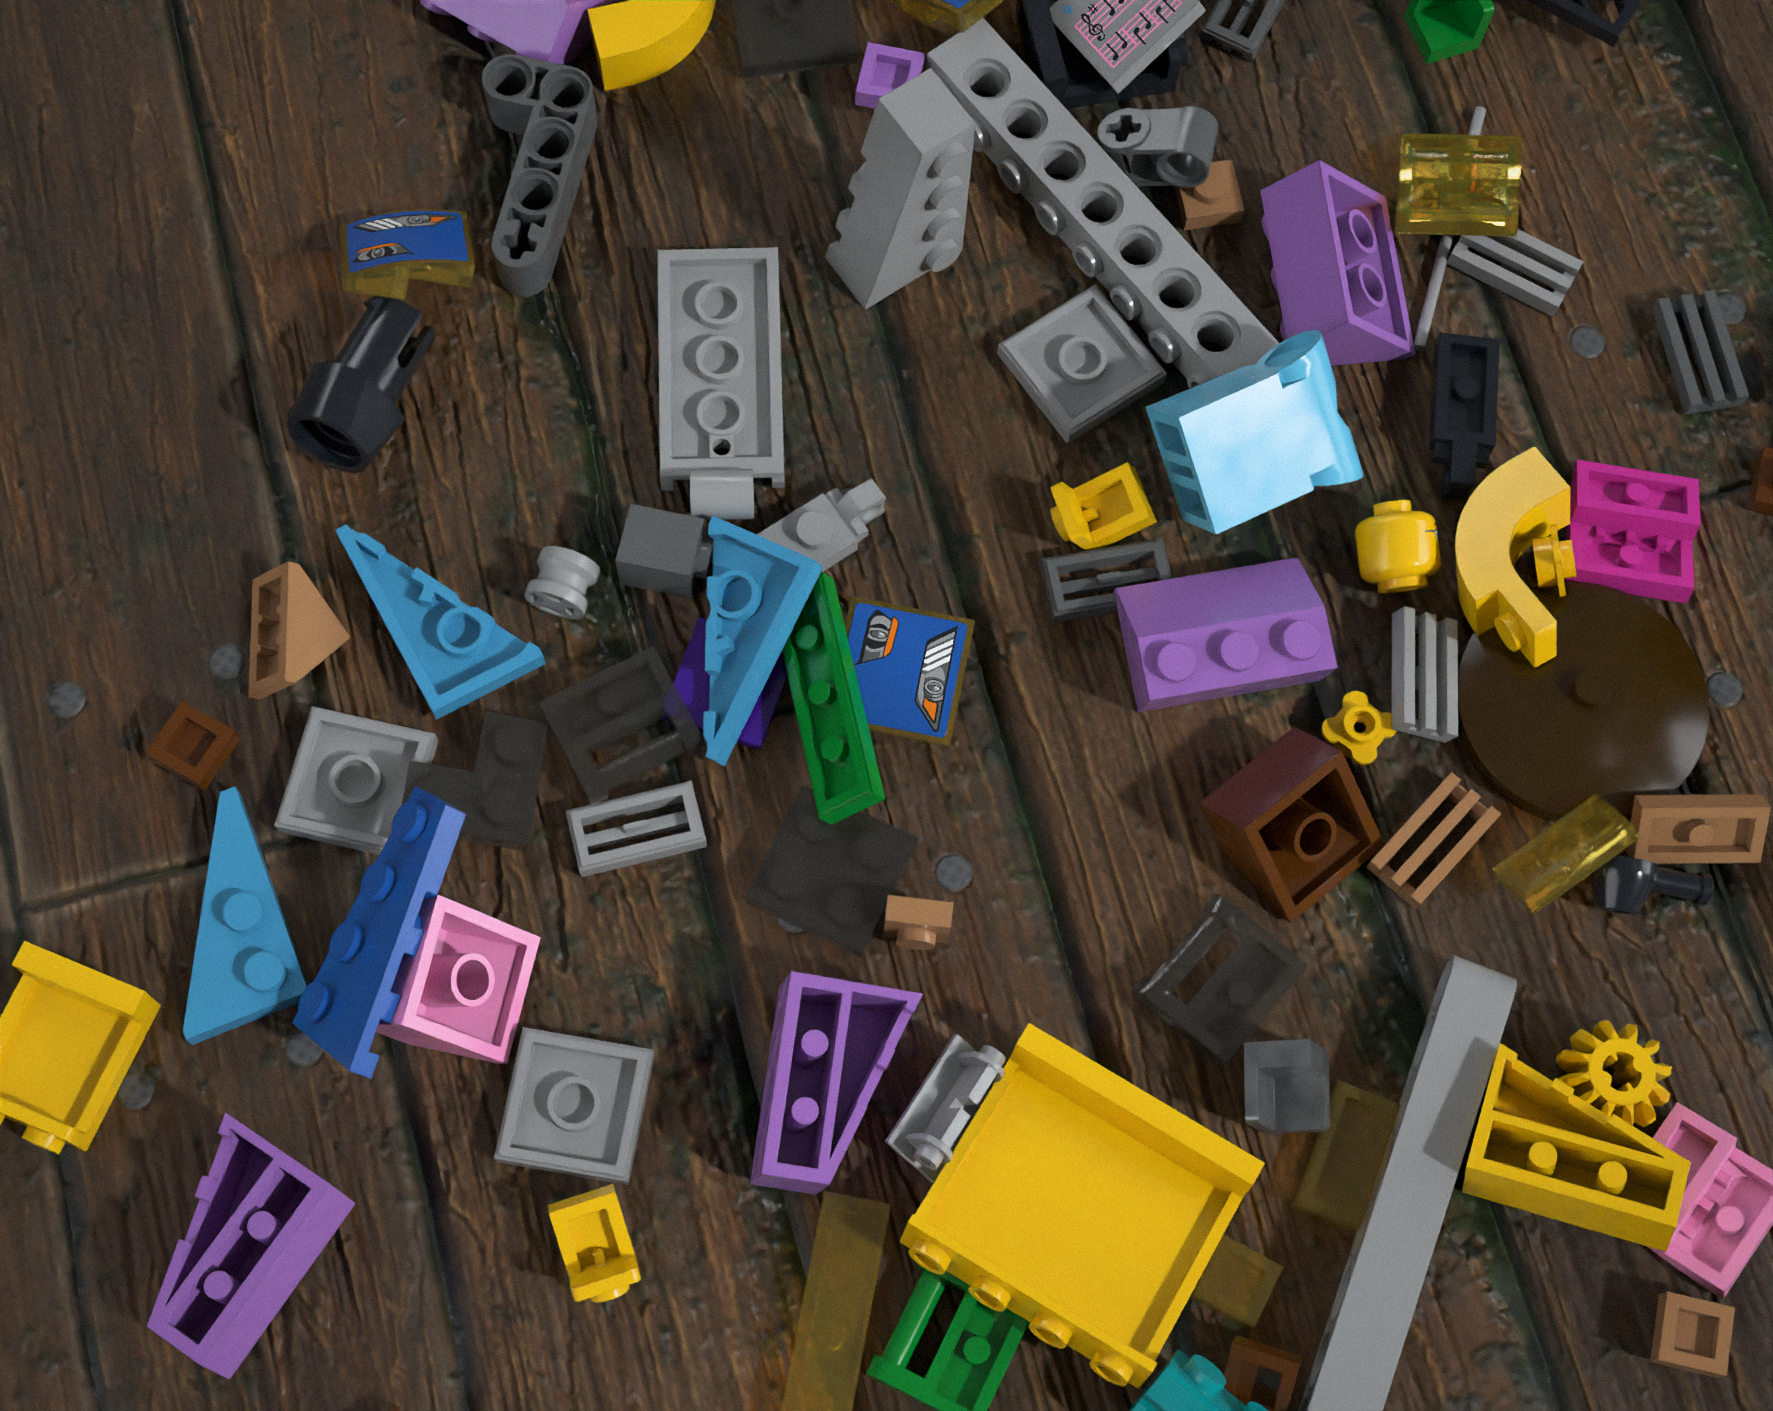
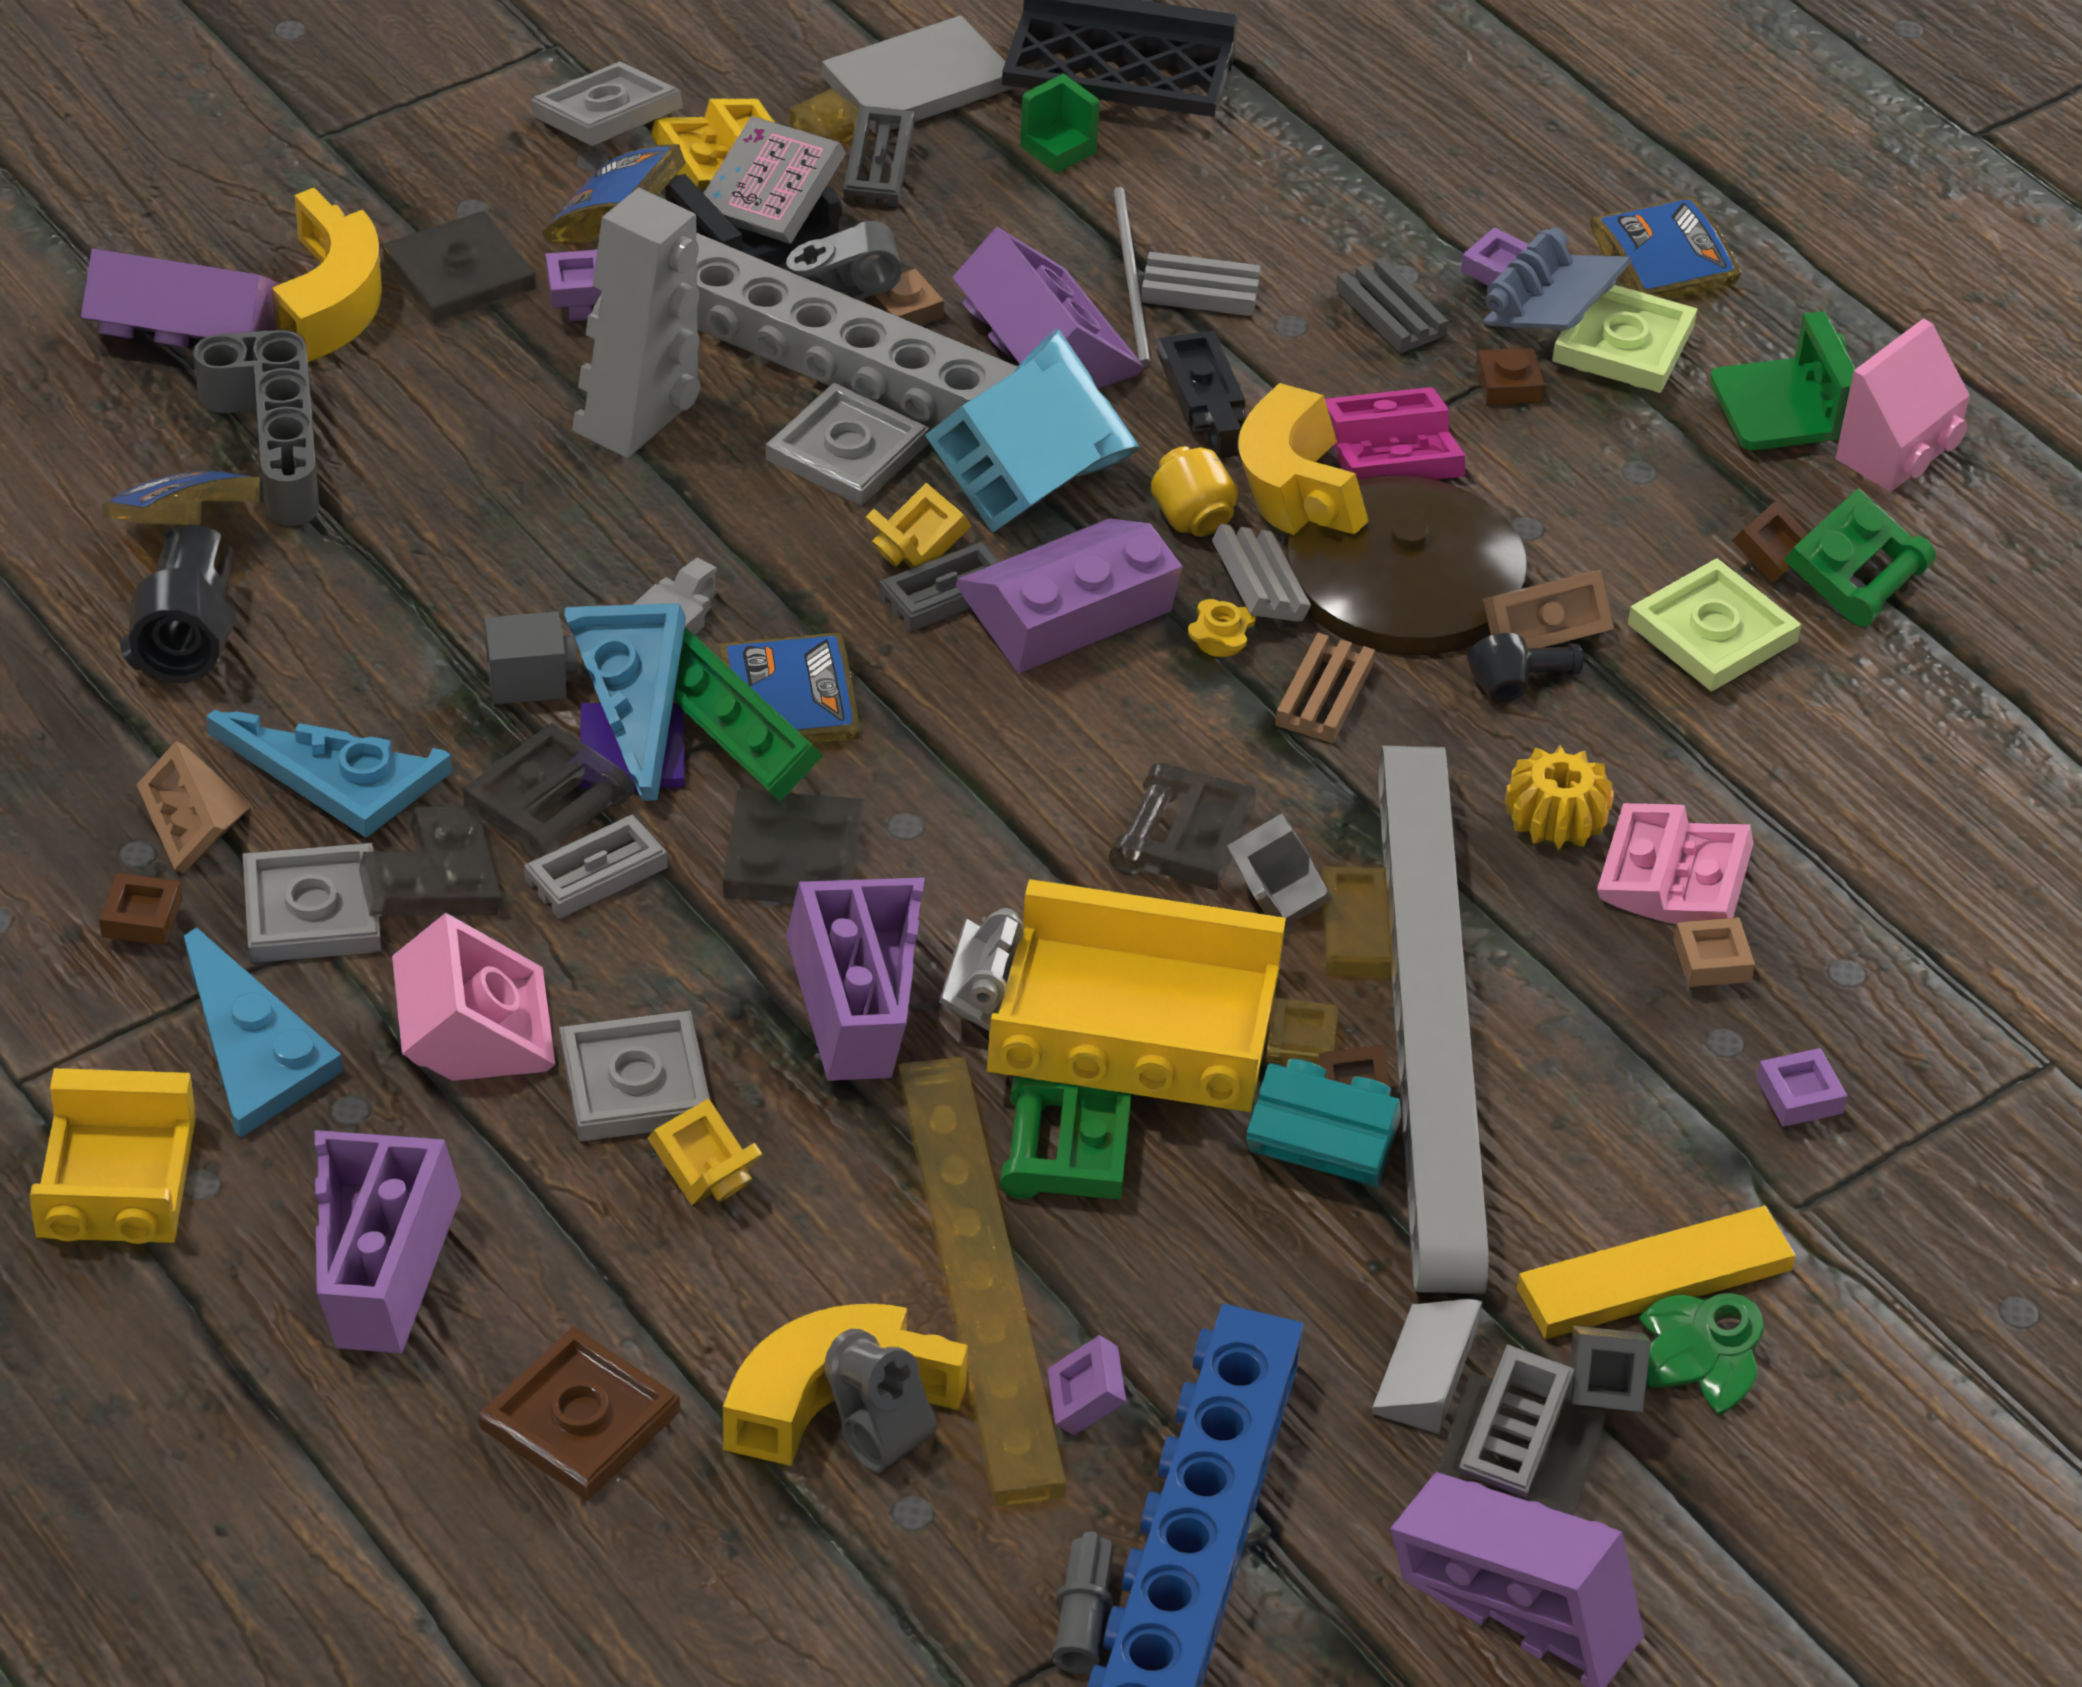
camera: 20 degrees left, 25 degrees down
(382, 927) = (395, 985): blue wing -> none
(562, 582) = (442, 702): light grey wheel -> none
(720, 376) = (517, 521): light grey hinge -> none
(917, 921) = (892, 849): medium nougat plate -> none
(1293, 822) = (1196, 697): reddish brown slope -> none
(1459, 185) = (1126, 236): clear yellow slope -> none
(1553, 561) = (1334, 453): yellow plate -> none
(1565, 853) = (1442, 654): clear yellow plate -> none
(1570, 1161) = (1551, 847): yellow wedge -> none

